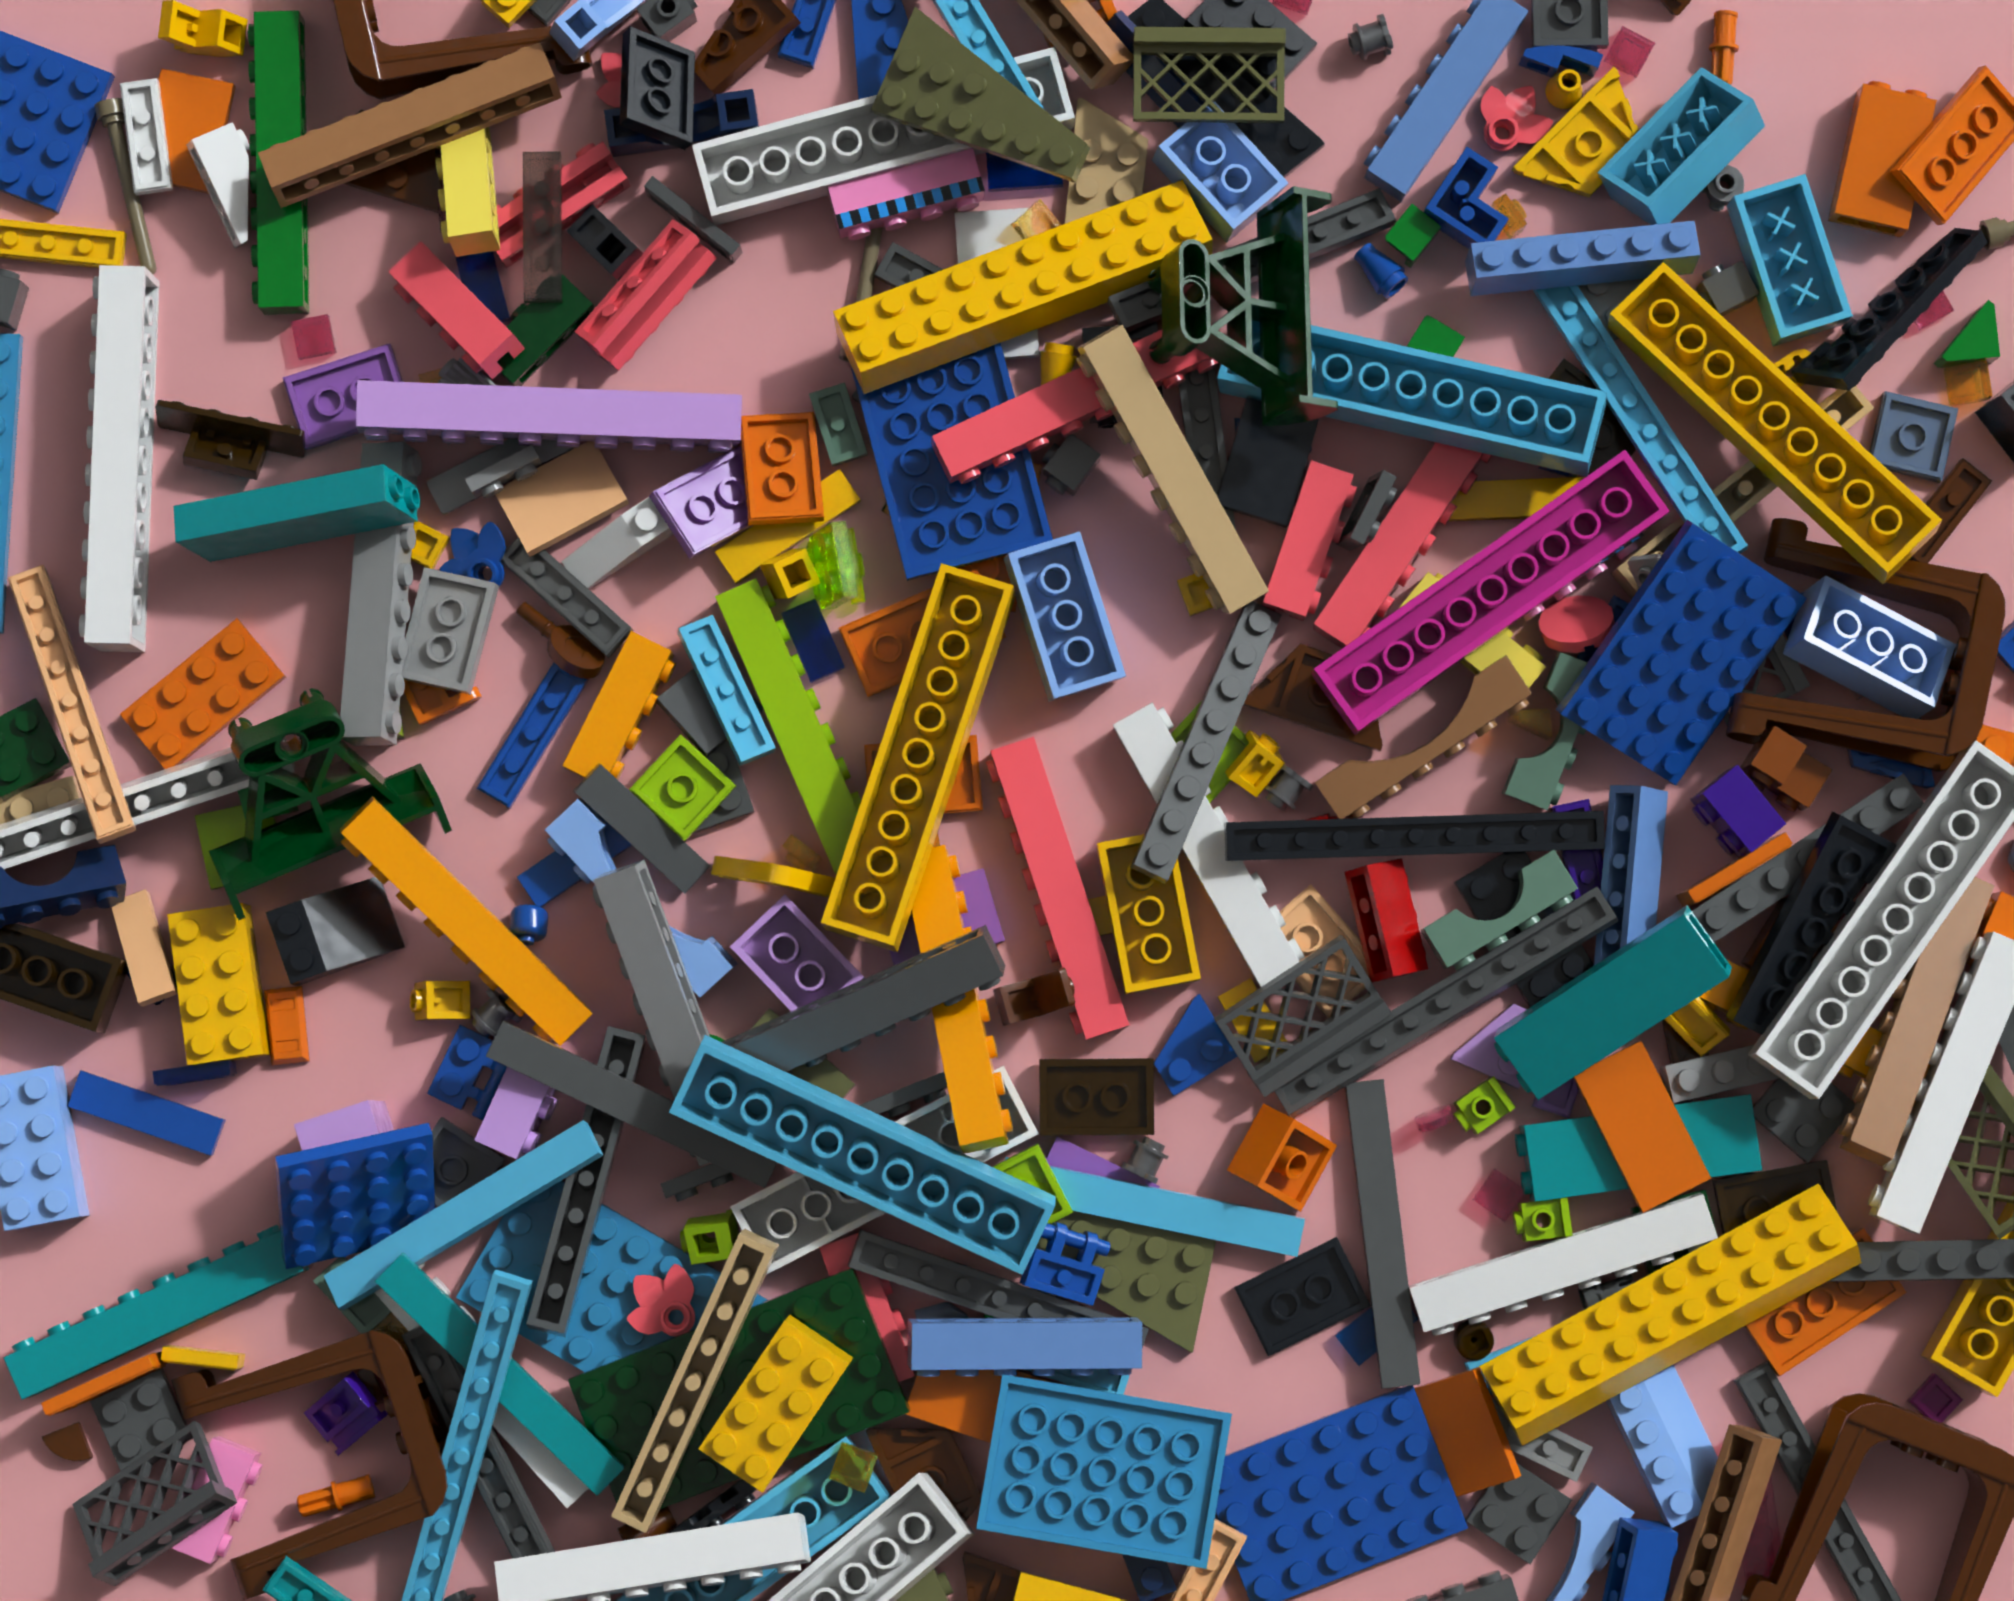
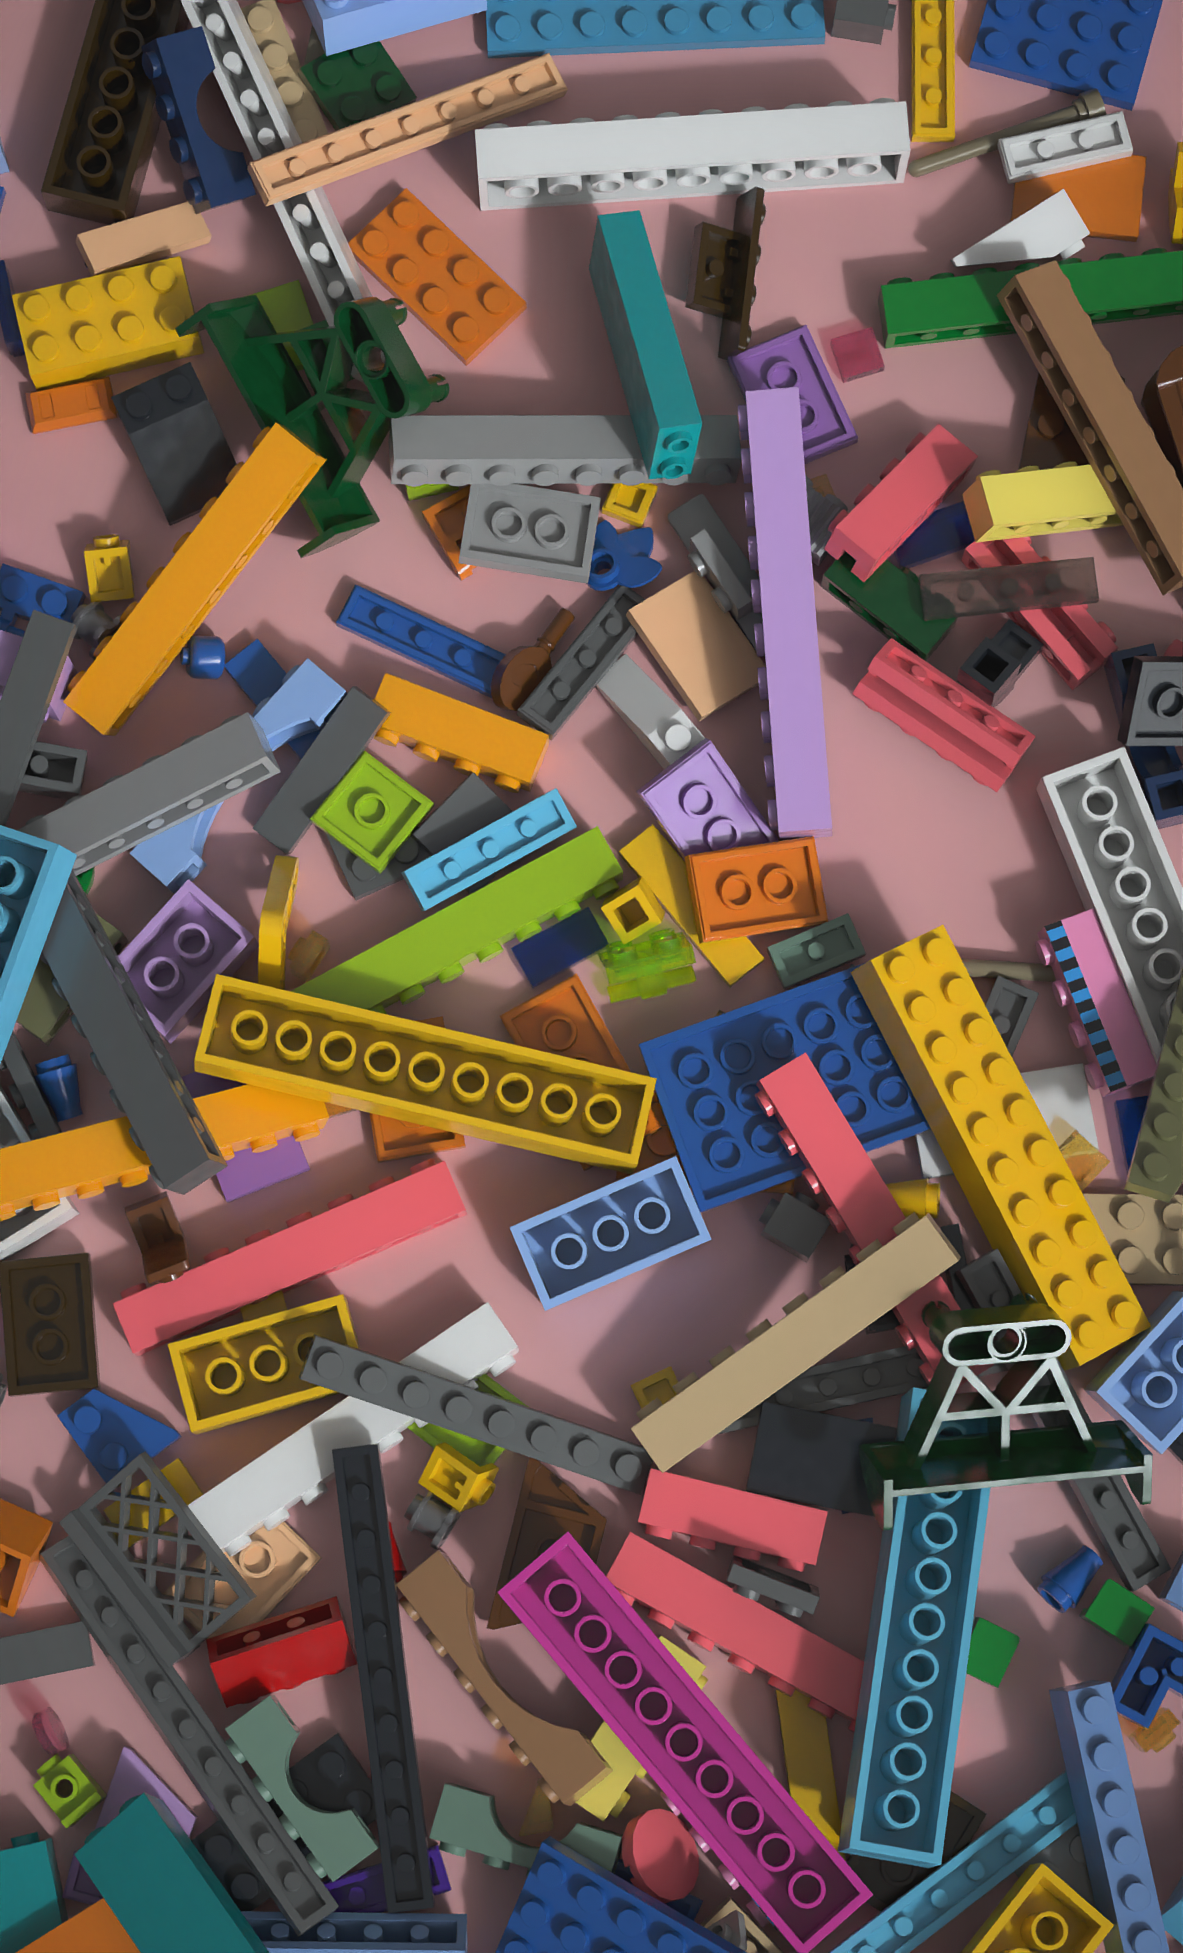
camera: 85 degrees right, 5 degrees down
(693, 219) = (1039, 761): dark grey tile -> none
(893, 1074) = (60, 1086): none -> blue cone

